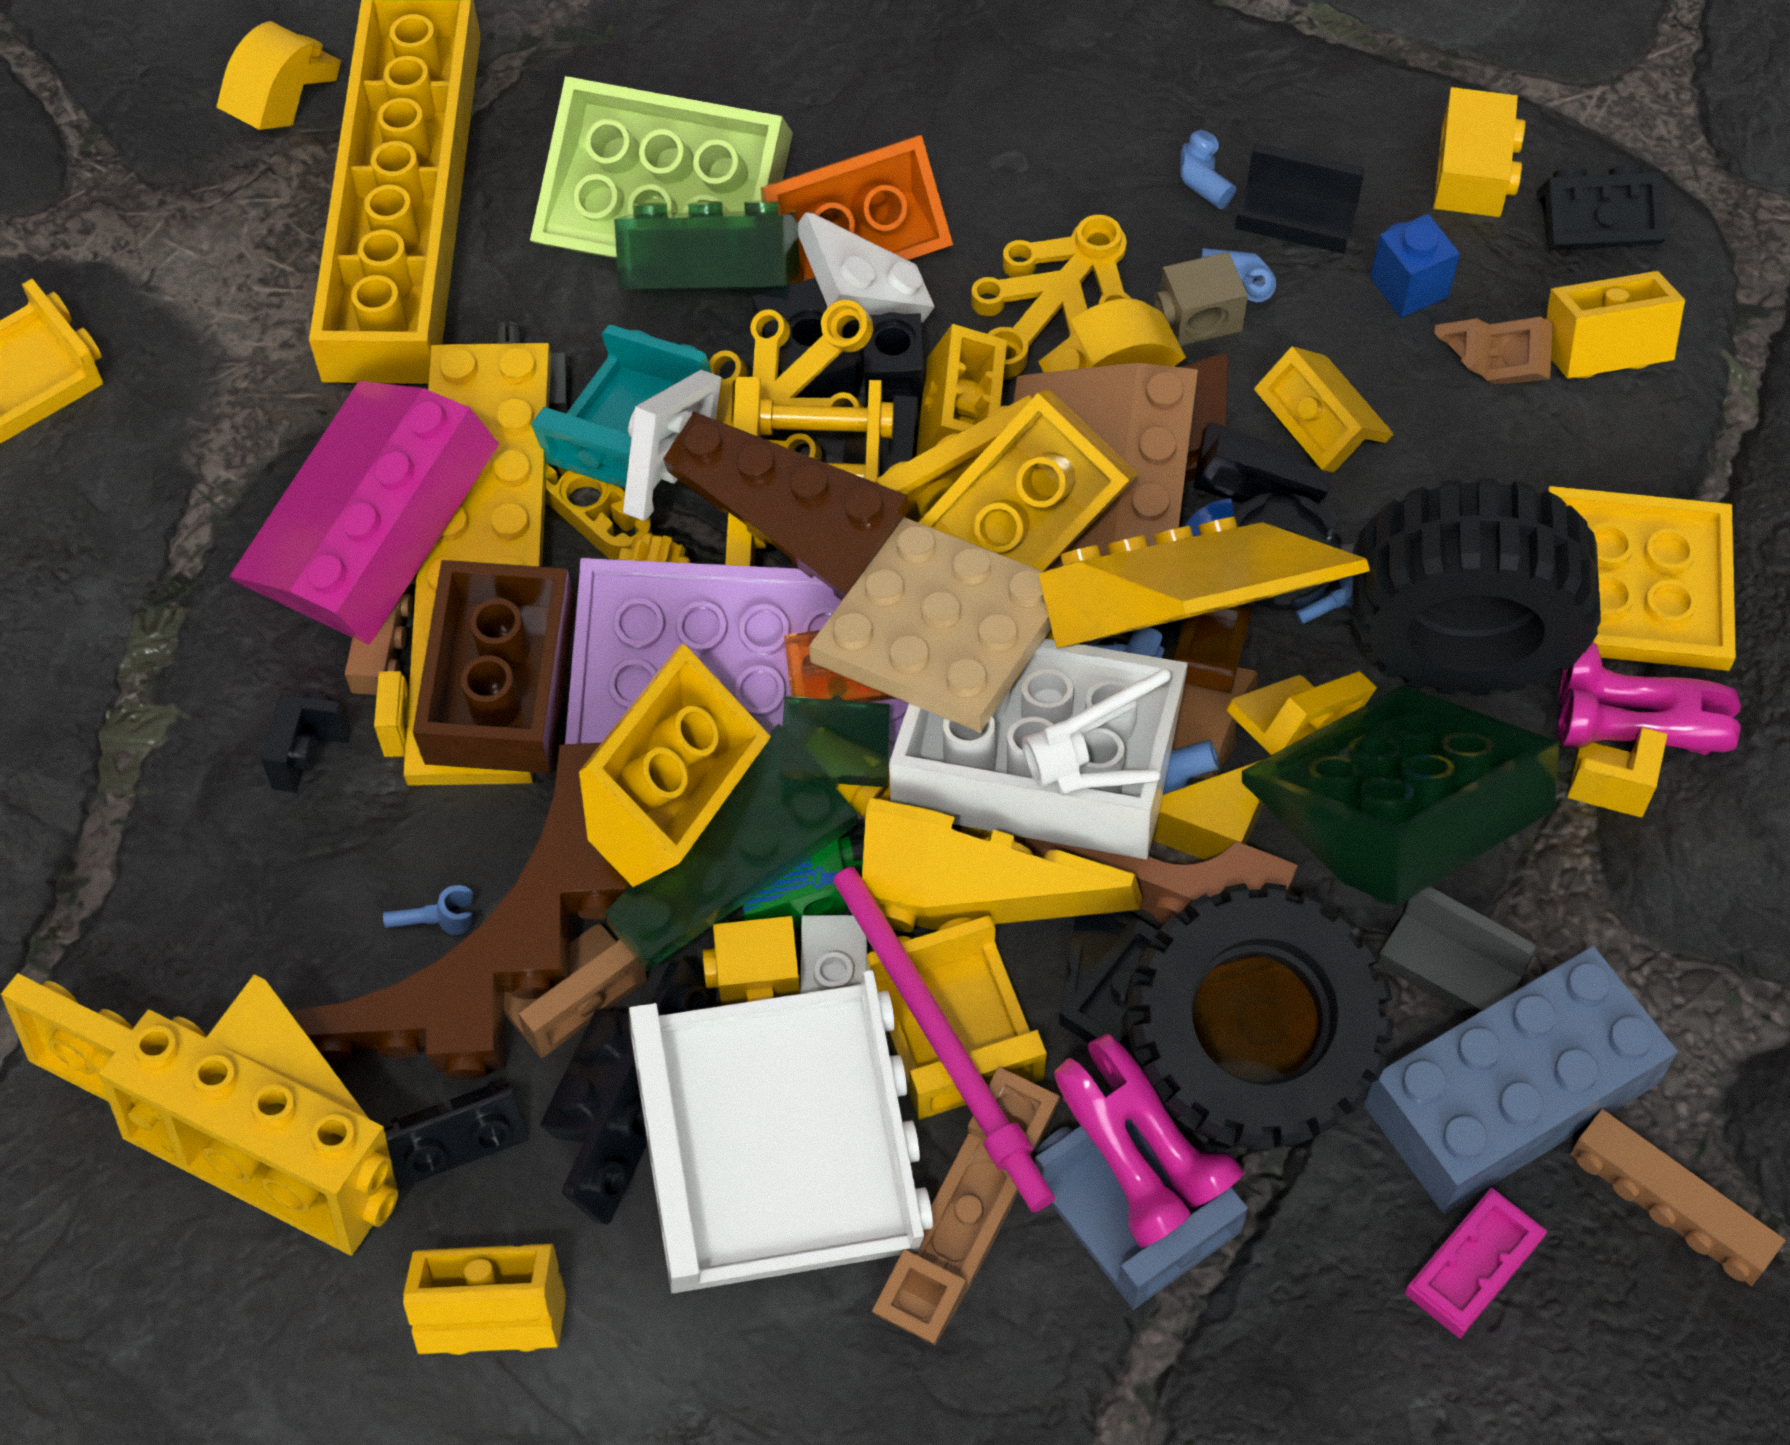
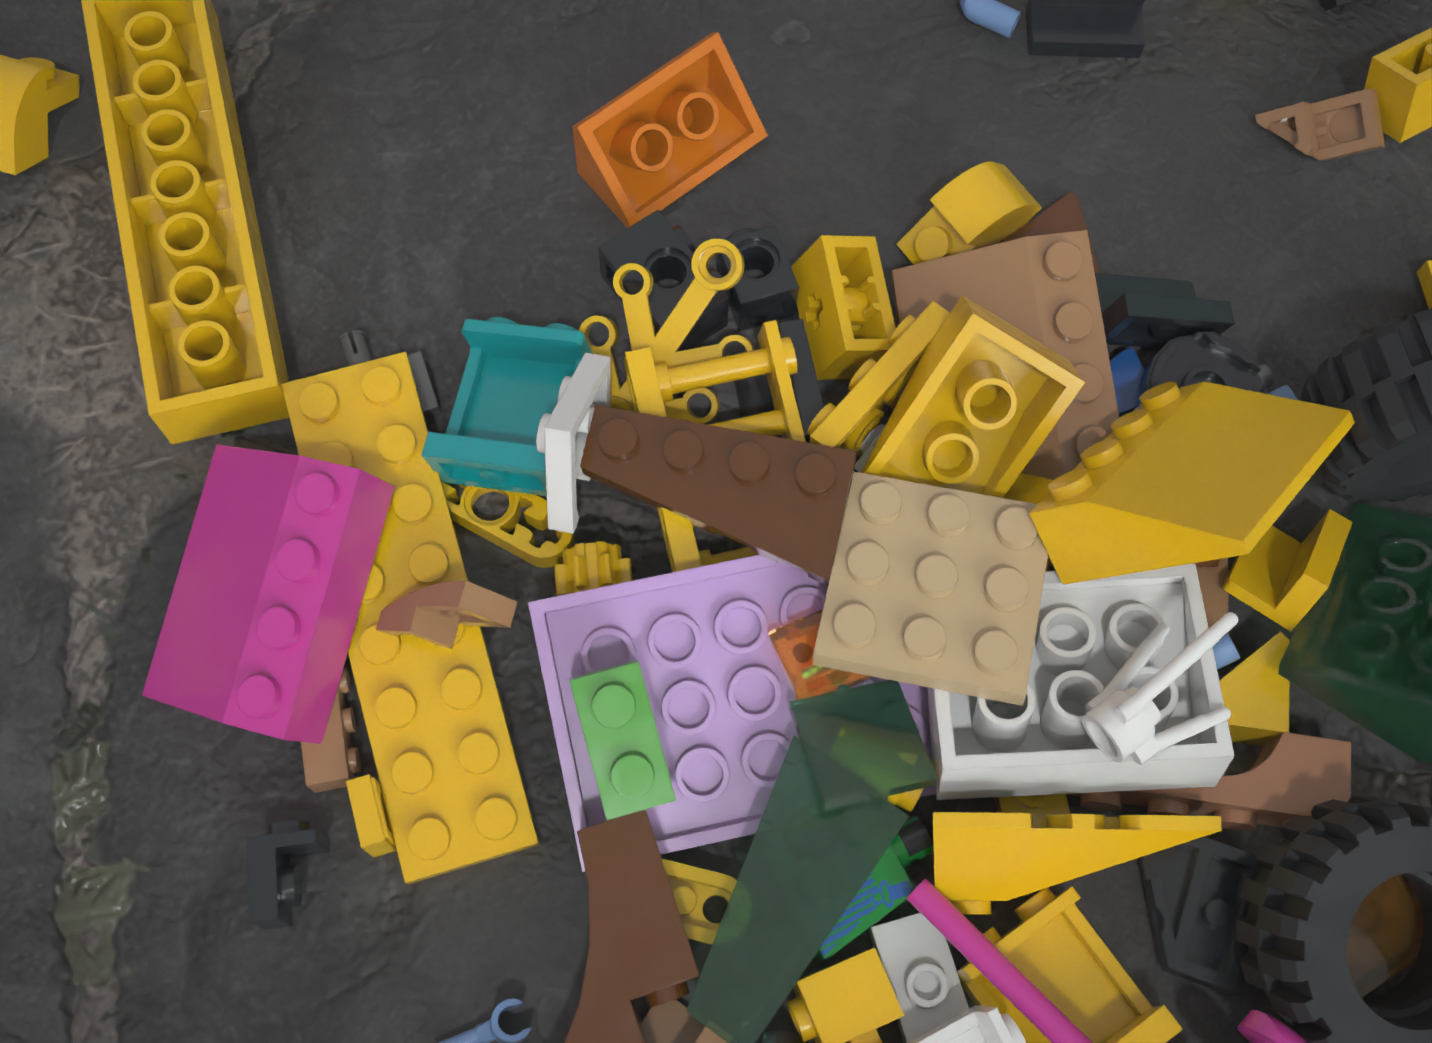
camera: 20 degrees left, 10 degrees up
(495, 667) = (474, 752): reddish brown brick -> none
(512, 543) = (438, 610): none -> medium nougat slope
(621, 662) = (622, 739): none -> bright green brick
(648, 147) = (455, 136): yellowish green slope -> none
(666, 768) = (718, 845): yellow slope -> none
(707, 246) = (534, 203): clear green brick -> none
(861, 271) = (696, 194): white wing -> none
(1052, 288) = (888, 158): yellow plant -> none
(1202, 298) = (1035, 138): dark tan brick -> none
(1254, 273) = (1057, 99): medium blue arm -> none
(1320, 407) = (1181, 230): yellow panel -> none
(1414, 265) = (1220, 56): blue brick -> none

